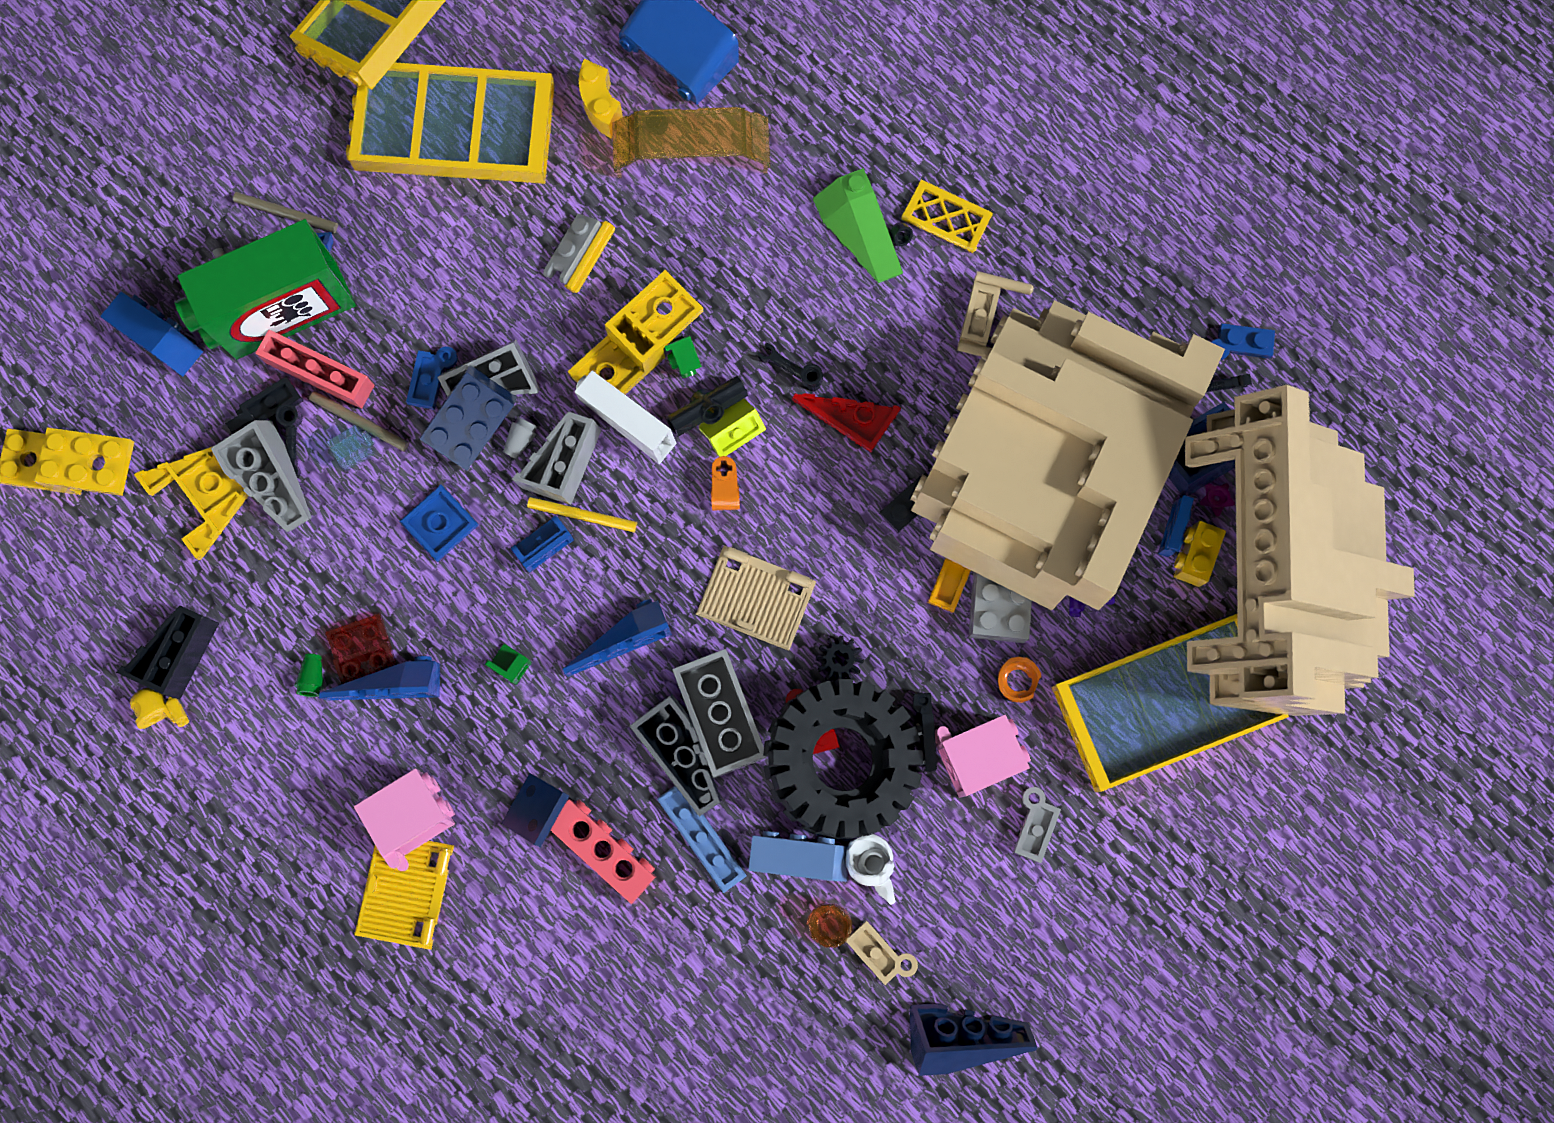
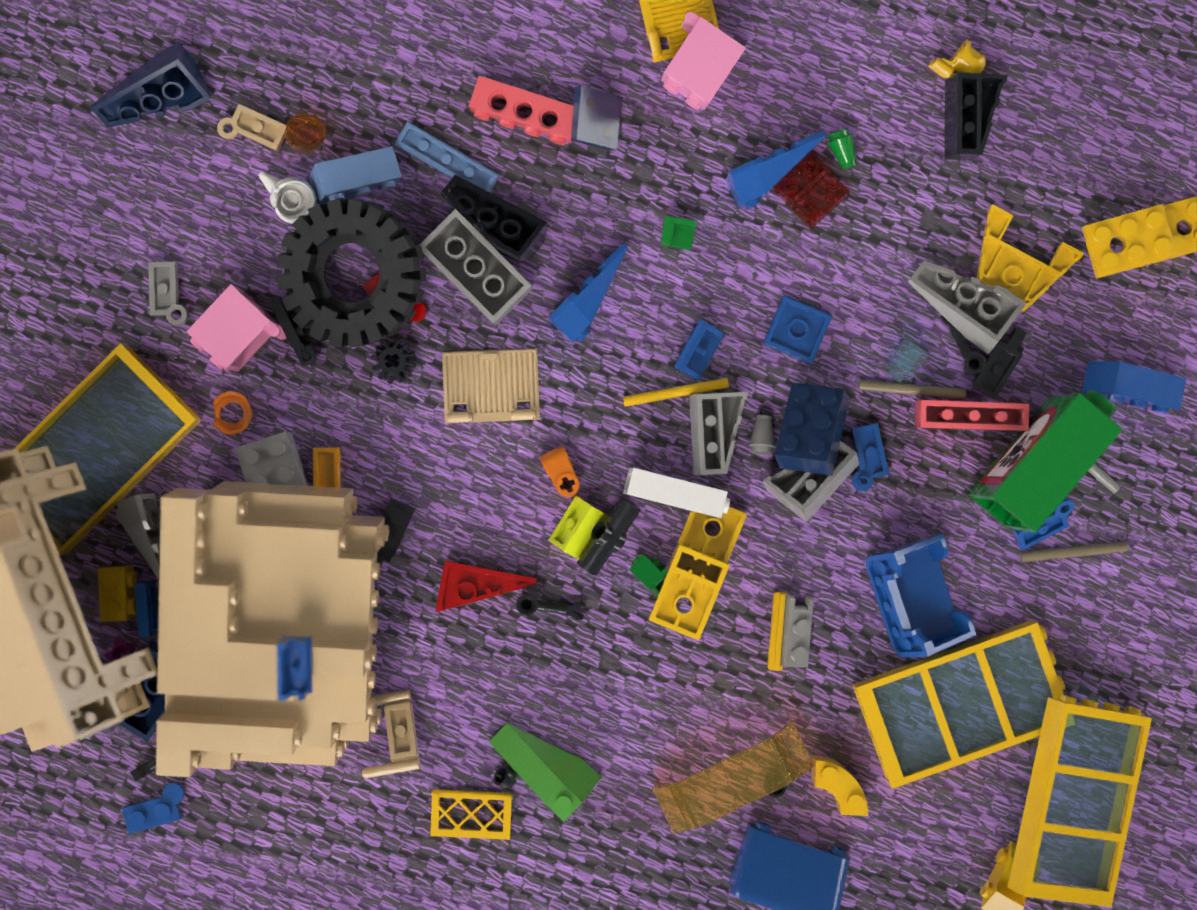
camera: 160 degrees right, 10 degrees up
(449, 228) = (916, 598): none -> blue windscreen
(1051, 383) = (294, 667): none -> blue hinge
(1147, 603) = (143, 525): none -> light grey wedge

